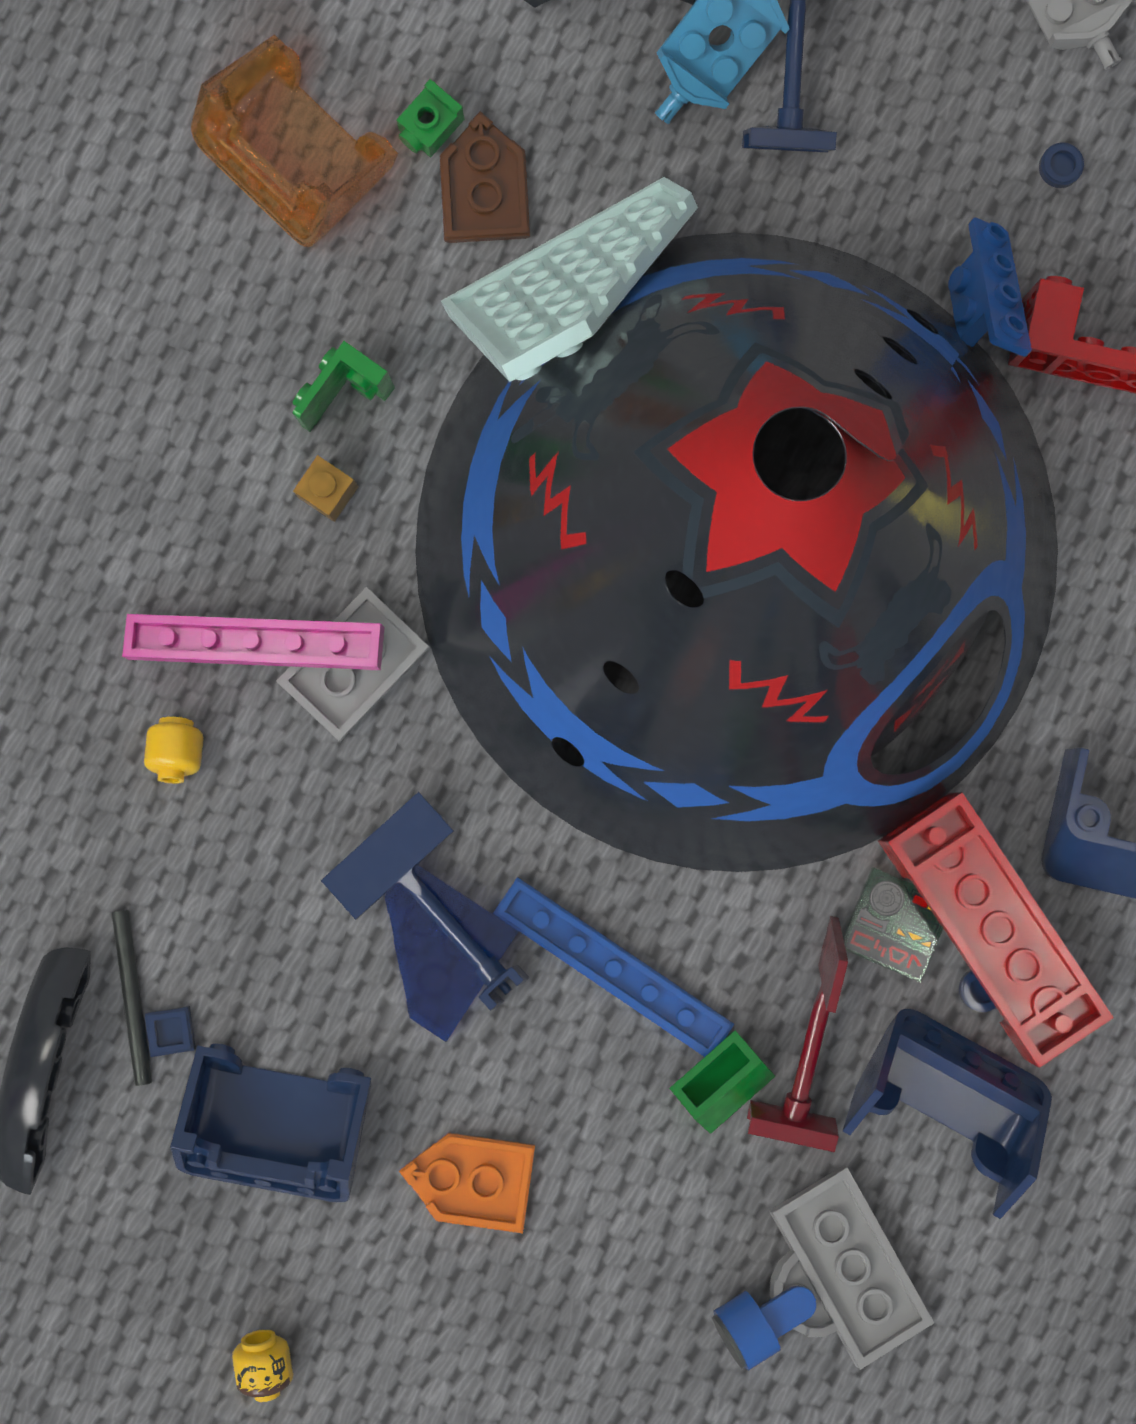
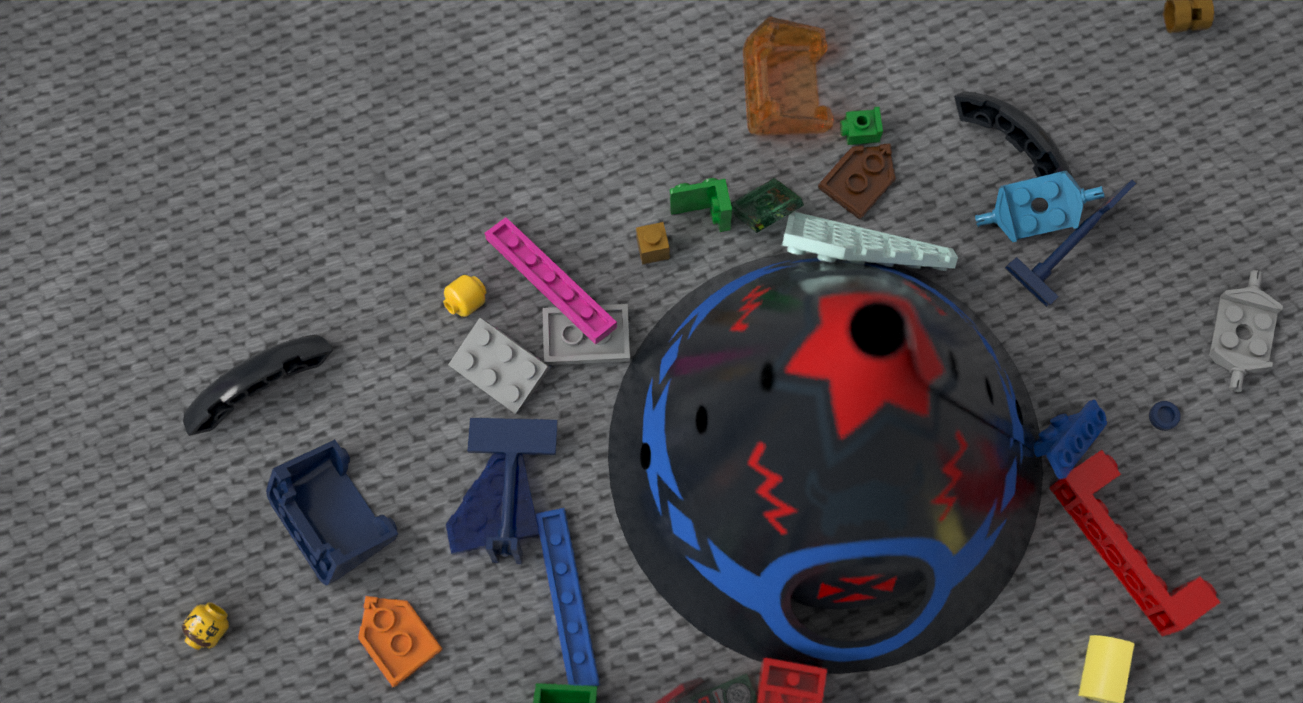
camera: 45 degrees right, 15 degrees down
(131, 997) = (328, 393): pearl dark grey bar -> none
(170, 1031) = (330, 424): dark blue tile -> none
(292, 791) = (499, 365): none -> light grey plate
(411, 322) = (766, 205): none -> clear green tile

